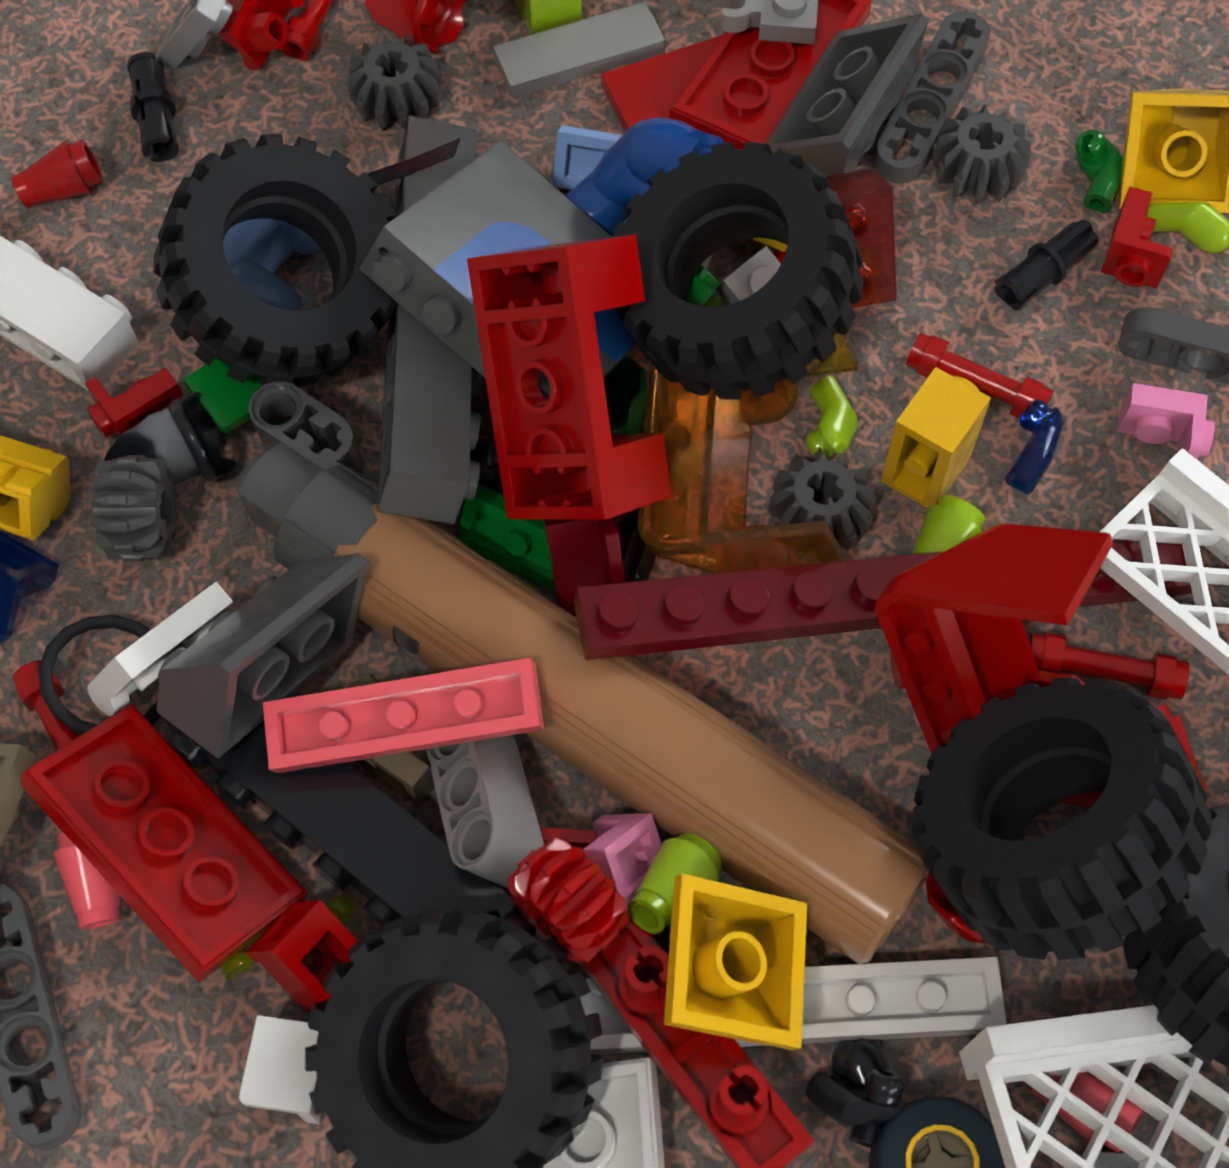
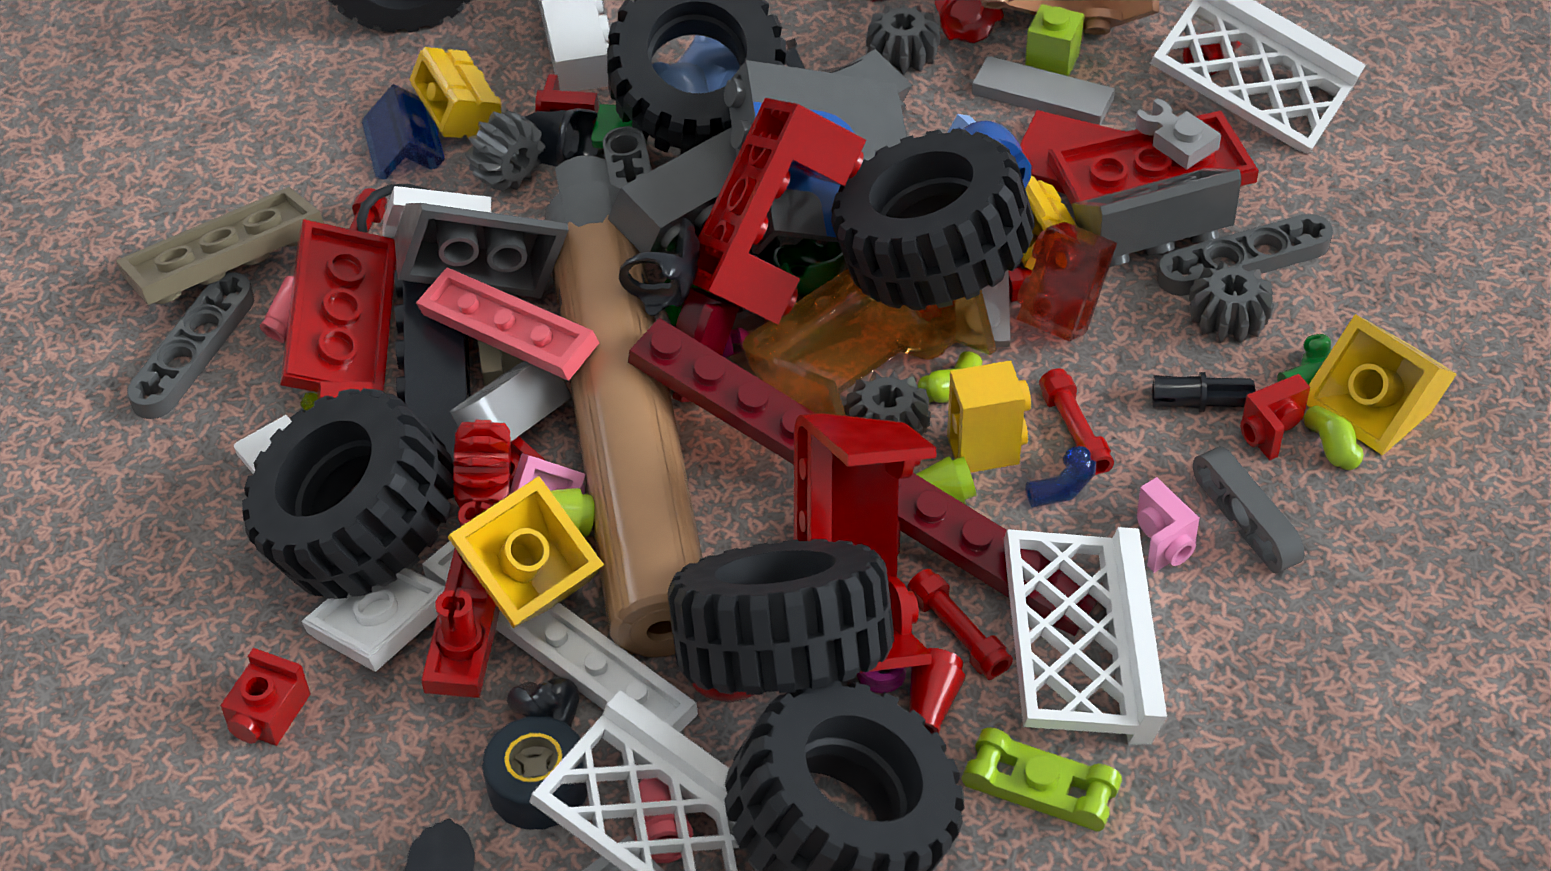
camera: 45 degrees right, 15 degrees down
(532, 517) = (678, 268): none -> black piece

